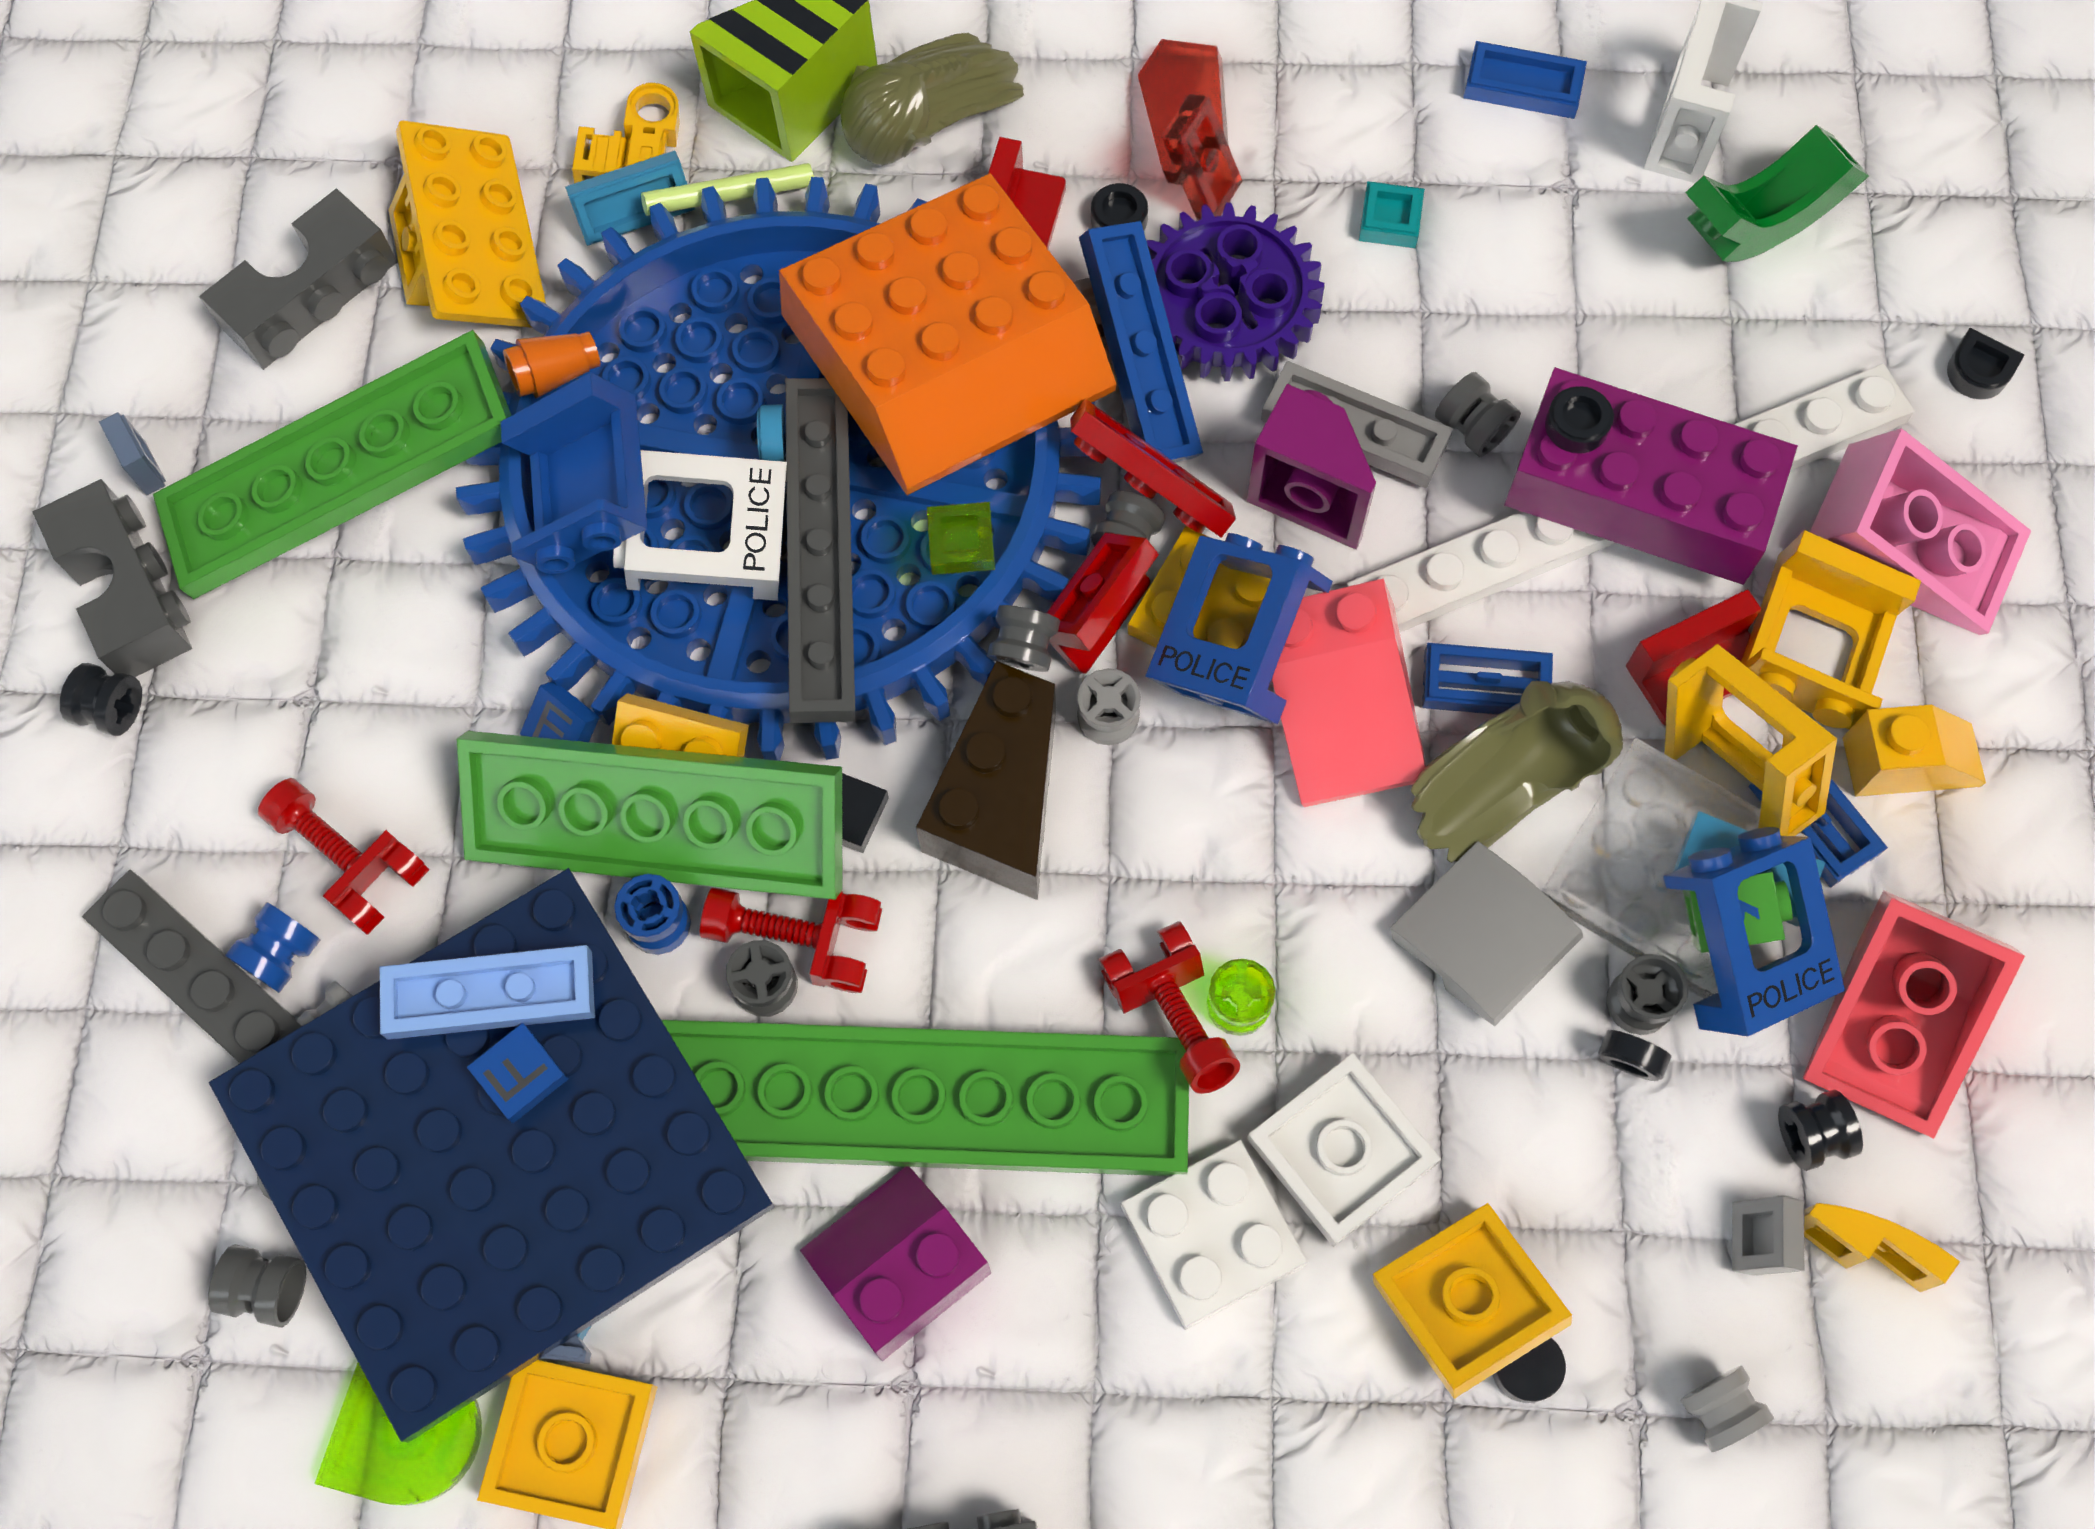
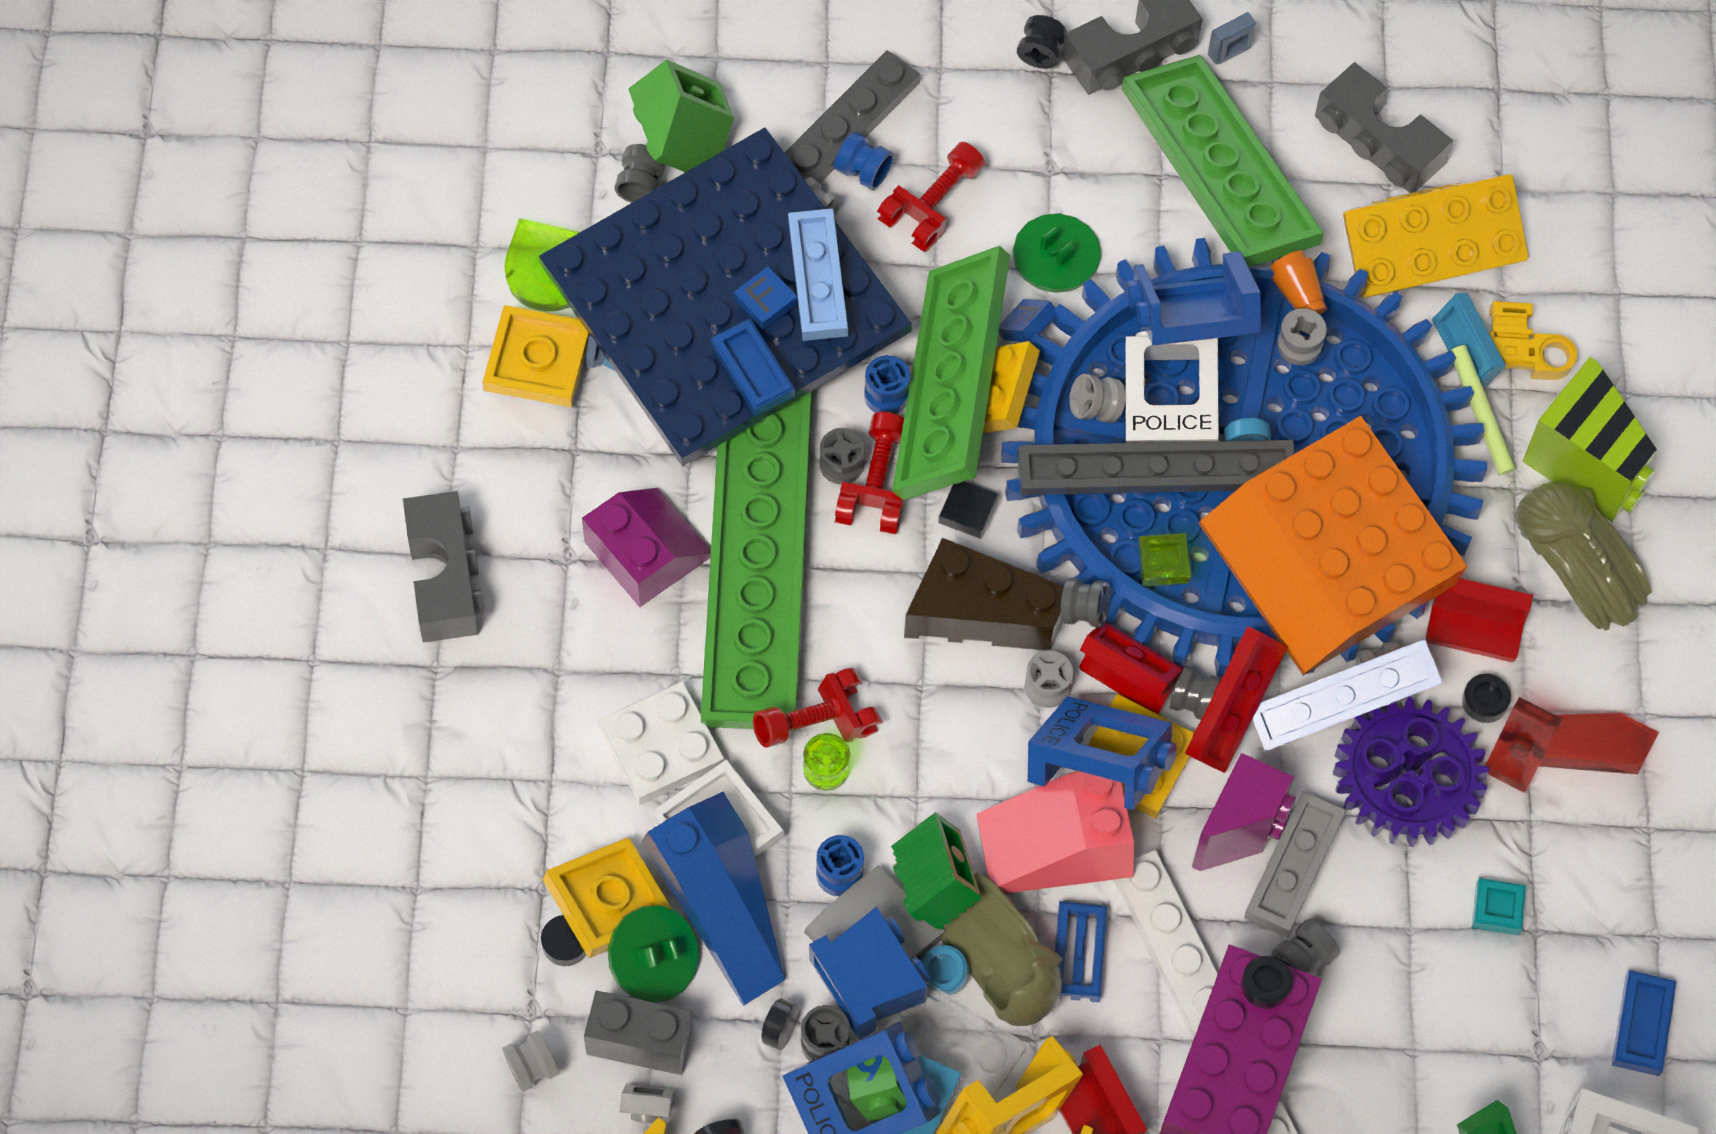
camera: 85 degrees right, 5 degrees down
(171, 1215) = (681, 115): none -> bright green slope
(445, 691) = (1056, 253): none -> green piece
(633, 1092) = (752, 367): none -> blue tile
(643, 367) = (1296, 347): none -> light grey wheel
(718, 632) = (1097, 398): none -> light grey wheel
(1392, 989) = (839, 875): none -> blue wheel
(1416, 843) = (935, 872): none -> green brick
(1444, 1141) = (716, 880): none -> blue wedge
(1532, 843) = (946, 968): none -> dark azure tile
(1551, 1233) = (653, 953): none -> green piece
(1573, 925) = (870, 972): none -> blue hips
(1673, 1250) = (638, 1032): none -> dark grey brick

